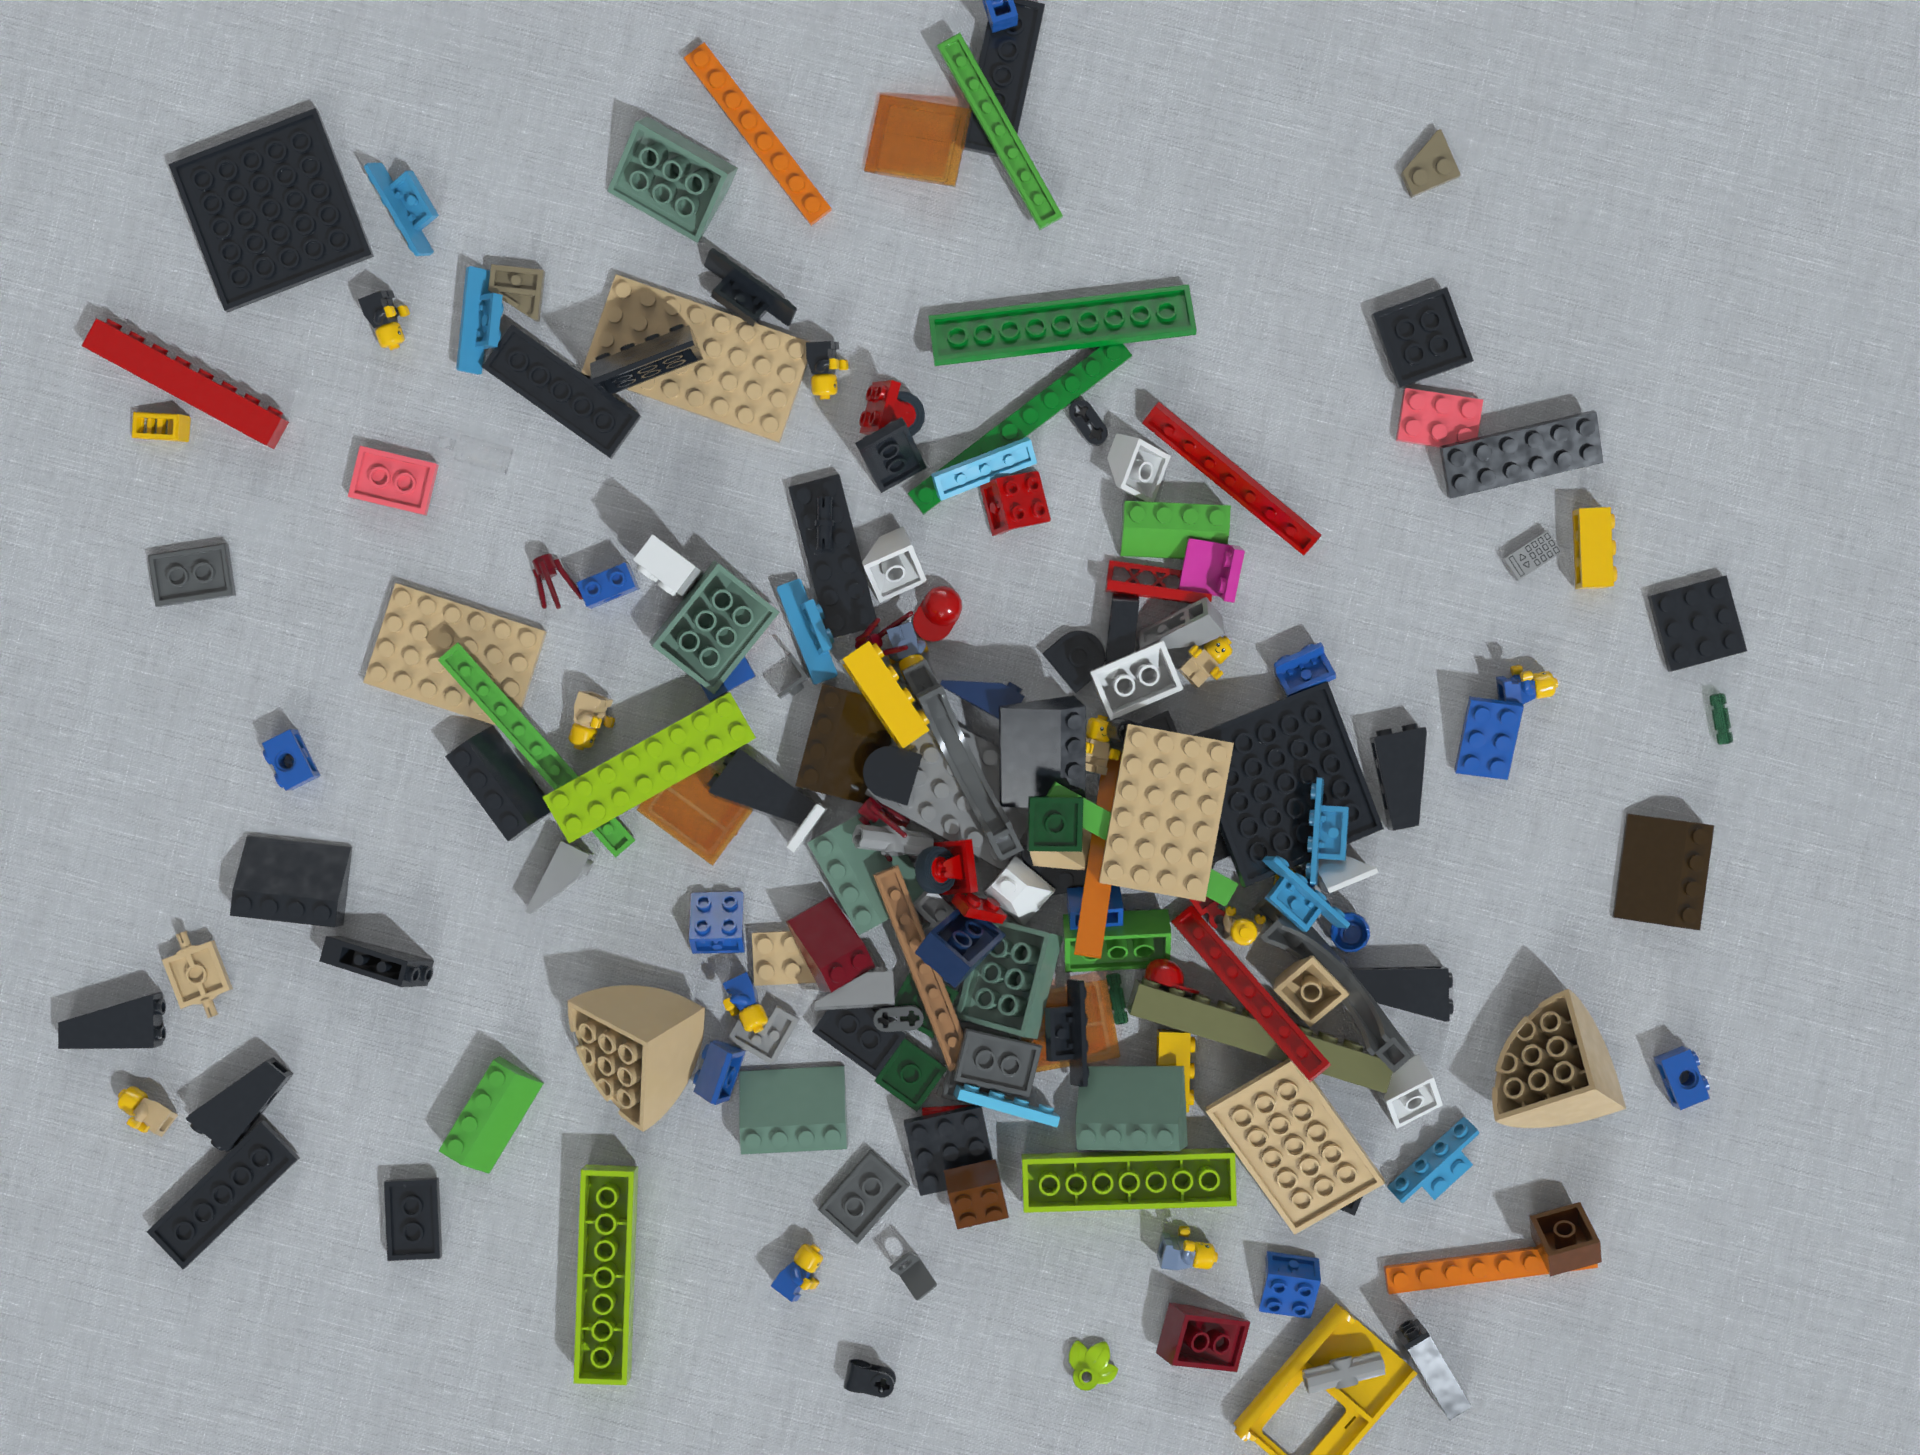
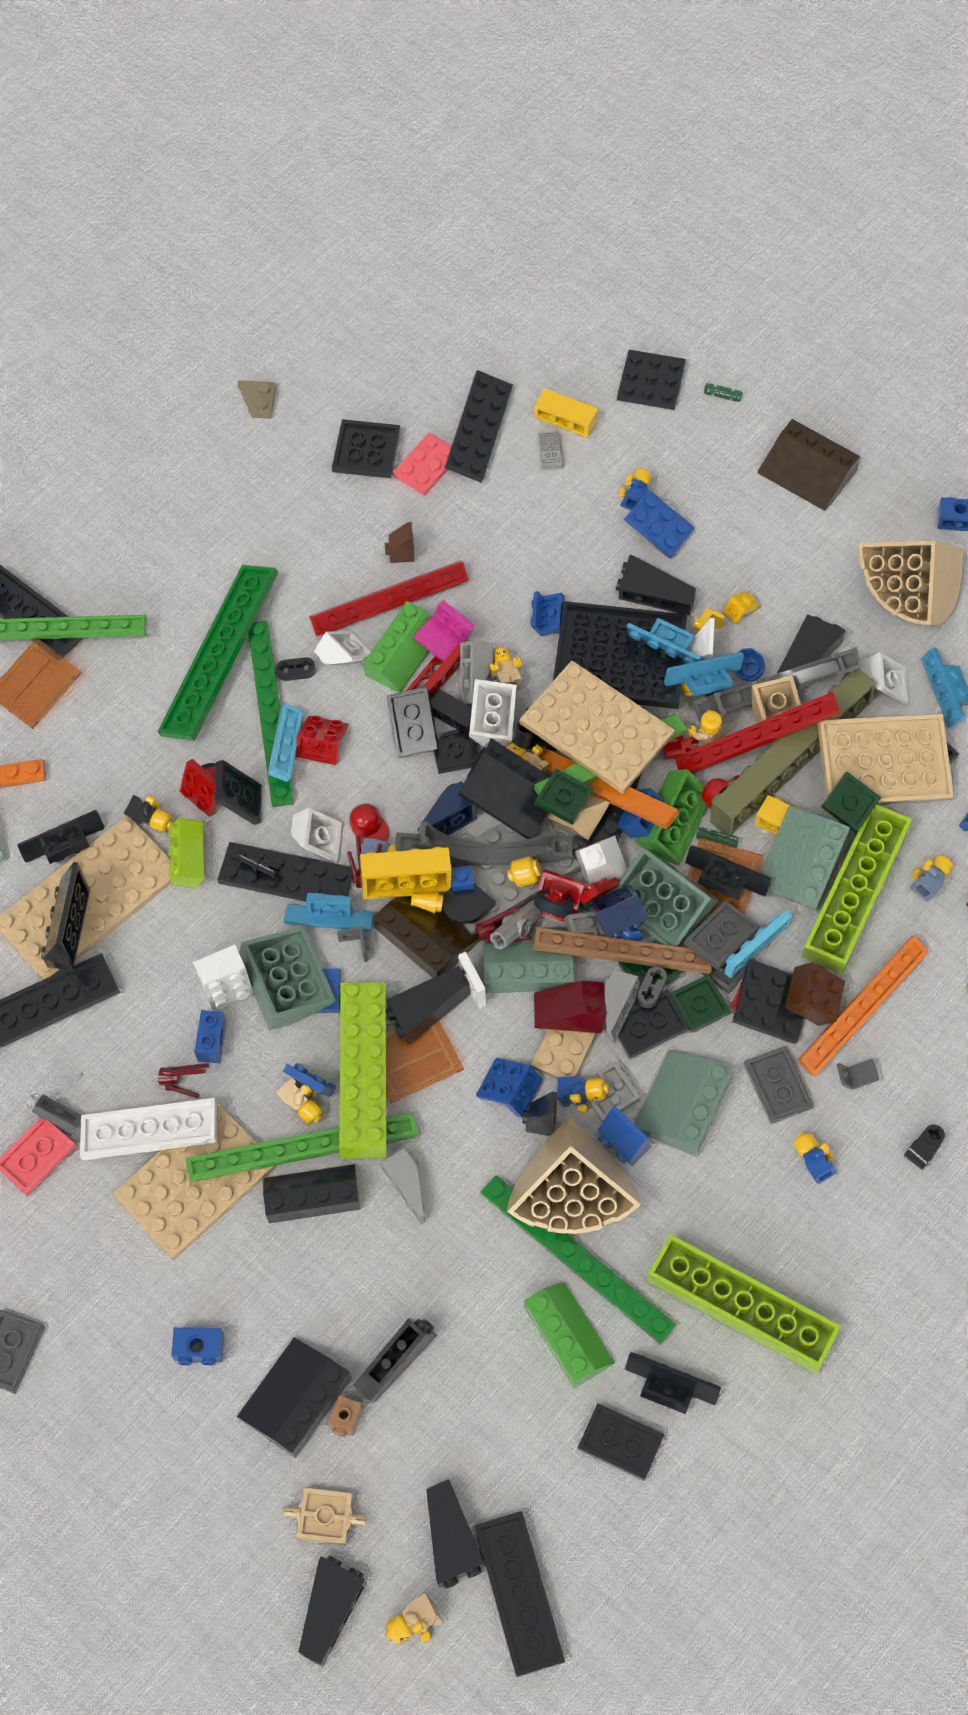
camera: 60 degrees left, 25 degrees down
(298, 942) = (345, 1416): none -> medium nougat brick
(443, 478) = (57, 1113): none -> dark grey plate
(476, 582) = (148, 1129): none -> white plate
(488, 1242) = (669, 1385): none -> black bracket
(568, 1104) = (587, 1268): none -> green plate
(611, 716) = (312, 1081): none -> blue plate
(694, 977) = (541, 1115): none -> black slope
(798, 437) = (186, 853): none -> lime brick
(873, 732) = (428, 901): none -> yellow cone
(914, 755) = (461, 878): none -> blue plate
(956, 819) = (524, 871): none -> yellow head
(996, 1246) = (862, 1006): none -> orange plate
(1080, 596) = (412, 722): none -> plate
(1217, 1133) = (850, 802): none -> dark green plate
(1306, 454) = (401, 544): none -> reddish brown slope
(1379, 852) = (708, 613): none -> yellow bracket
(1427, 884) = (740, 605): none -> yellow bracket

